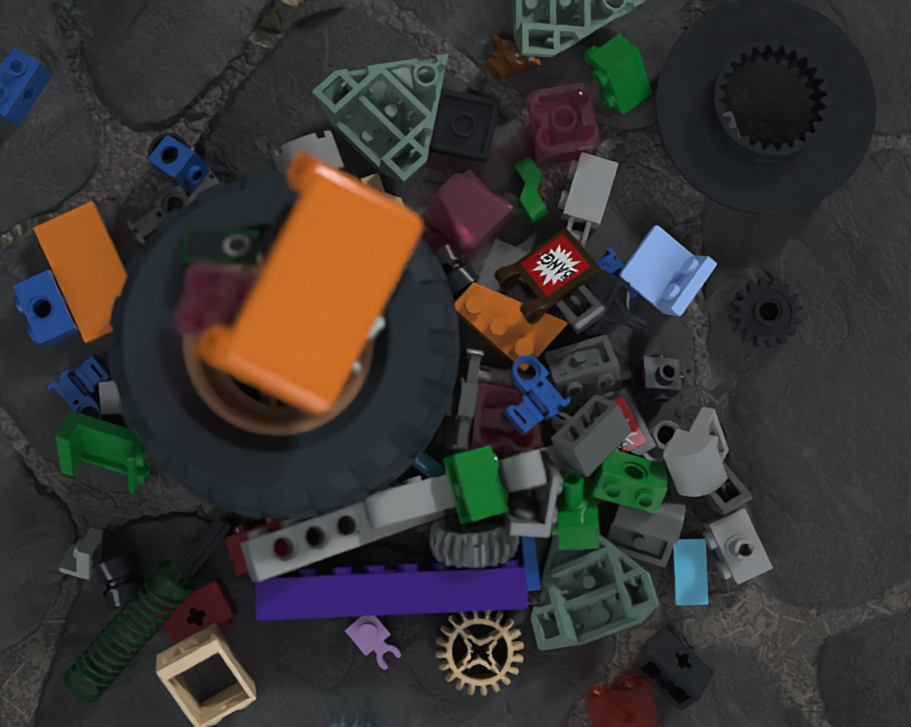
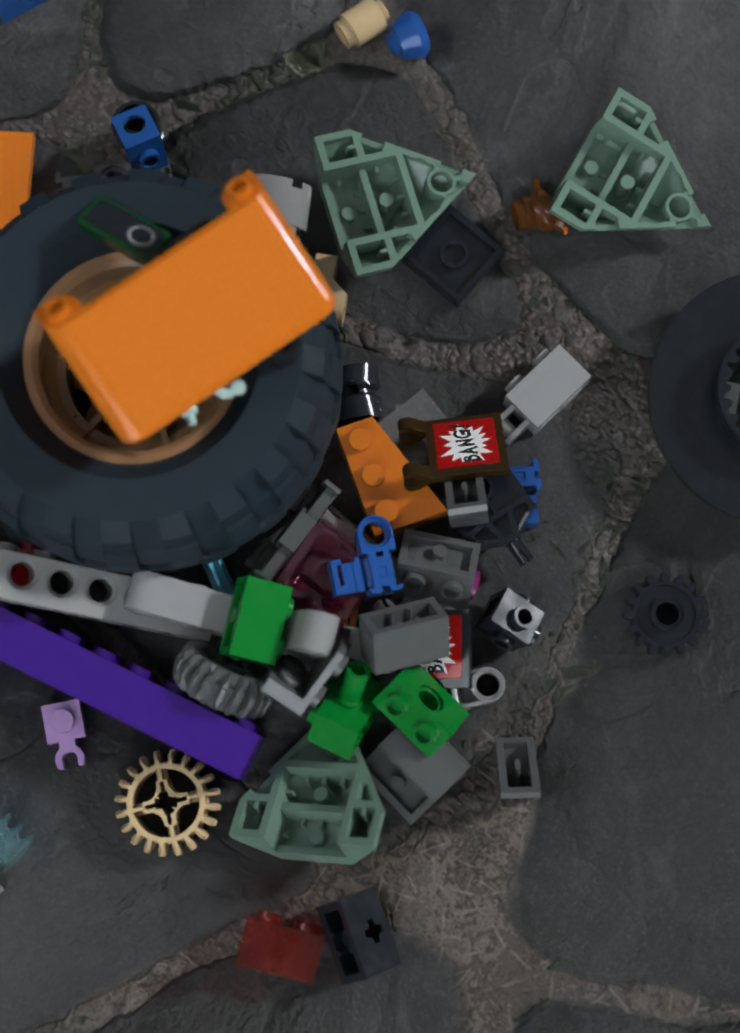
camera: 30 degrees right, 5 degrees down
(211, 298) = (82, 268): clear pink piece -> none
(468, 211) = (408, 344): clear pink piece -> none
(529, 178) = (491, 348): green piece -> none
(530, 561) = (272, 738): blue tile -> none
(562, 123) = (554, 305): clear pink piece -> none
(618, 73) = (641, 286): green brick -> none
(666, 272) = (580, 514): light blue bracket -> none
(690, 572) = (435, 845): medium azure tile -> none
(697, 456) = (508, 722): light grey brick -> none
(736, 546) = (499, 843): light grey brick -> none

